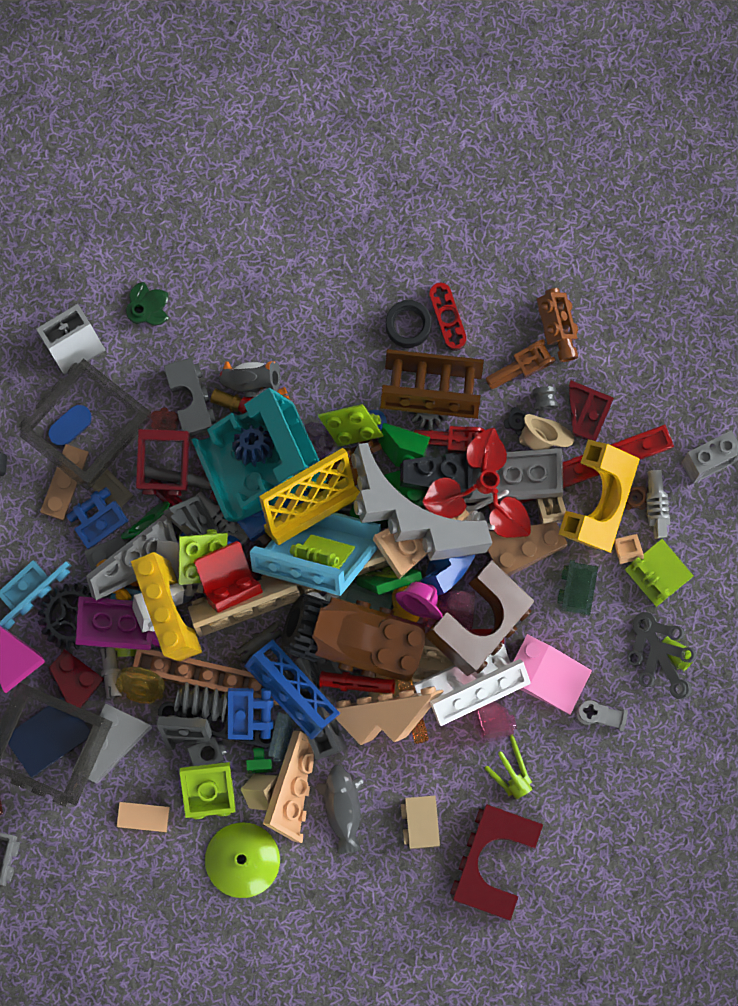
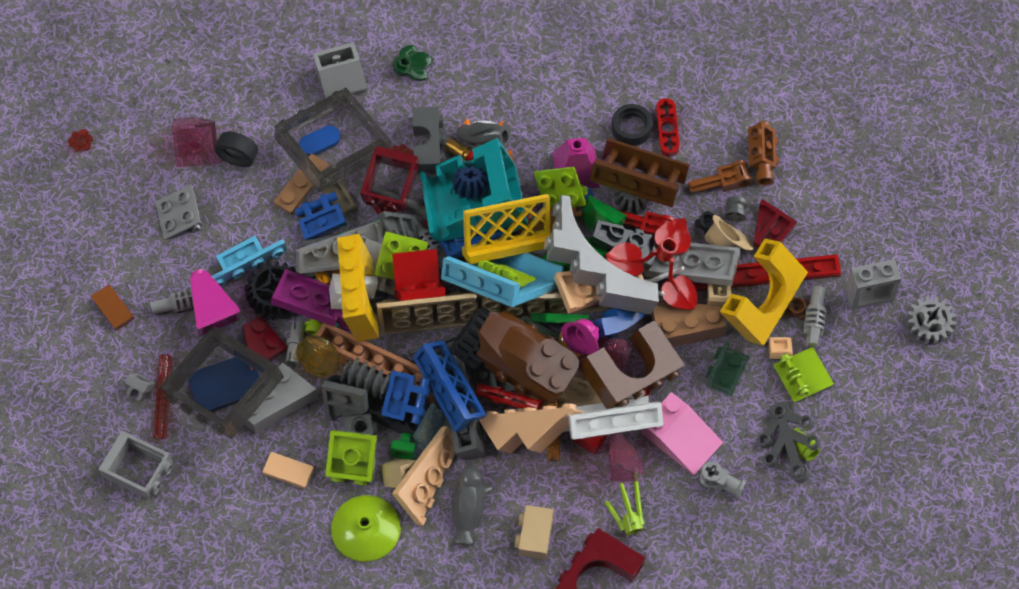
camera: 15 degrees right, 15 degrees down
(359, 387) = (577, 154): none -> dark pink slope

